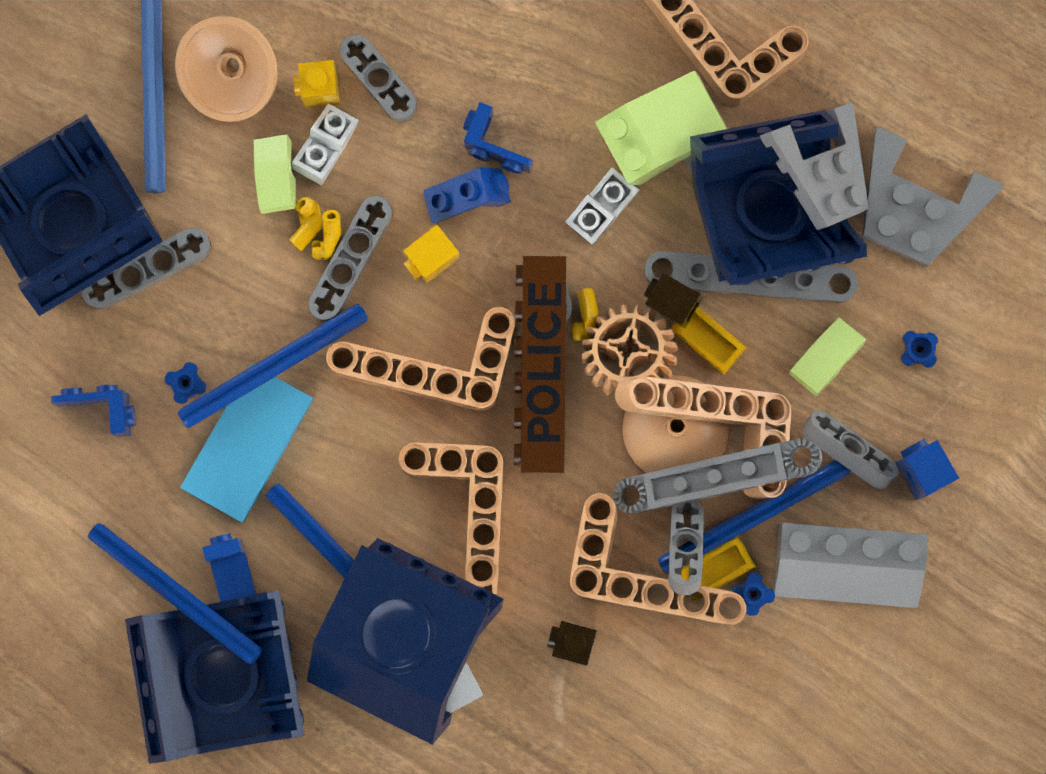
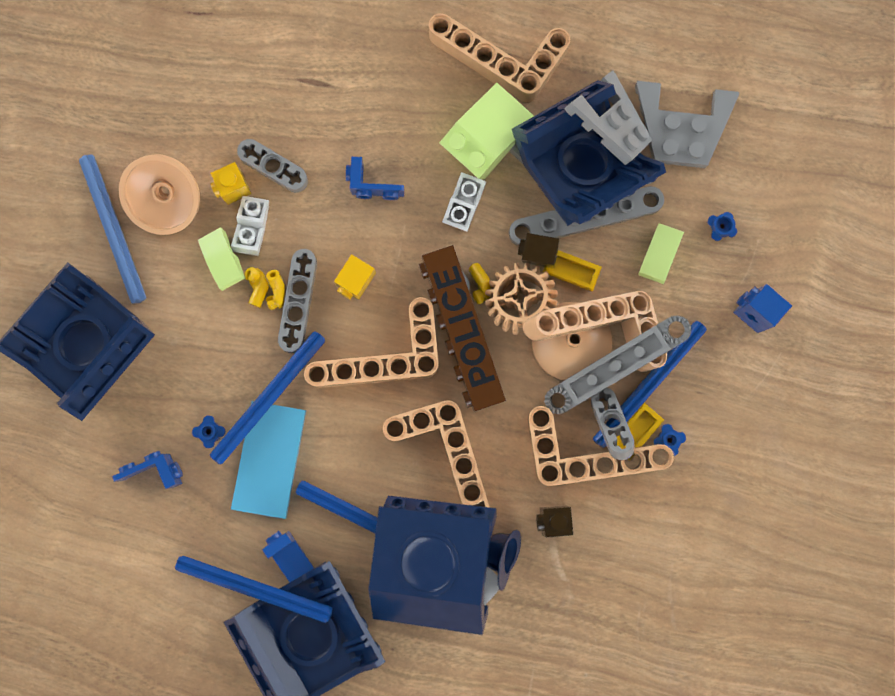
camera: 30 degrees left, 0 degrees up
(149, 274) = (155, 362): light grey beam -> none
(467, 192) = (364, 225): blue bracket -> none
(493, 660) = (503, 555): none -> dark blue piece
(850, 565) = (730, 395): light grey slope -> none
(867, 460) = (701, 313): light grey beam -> none

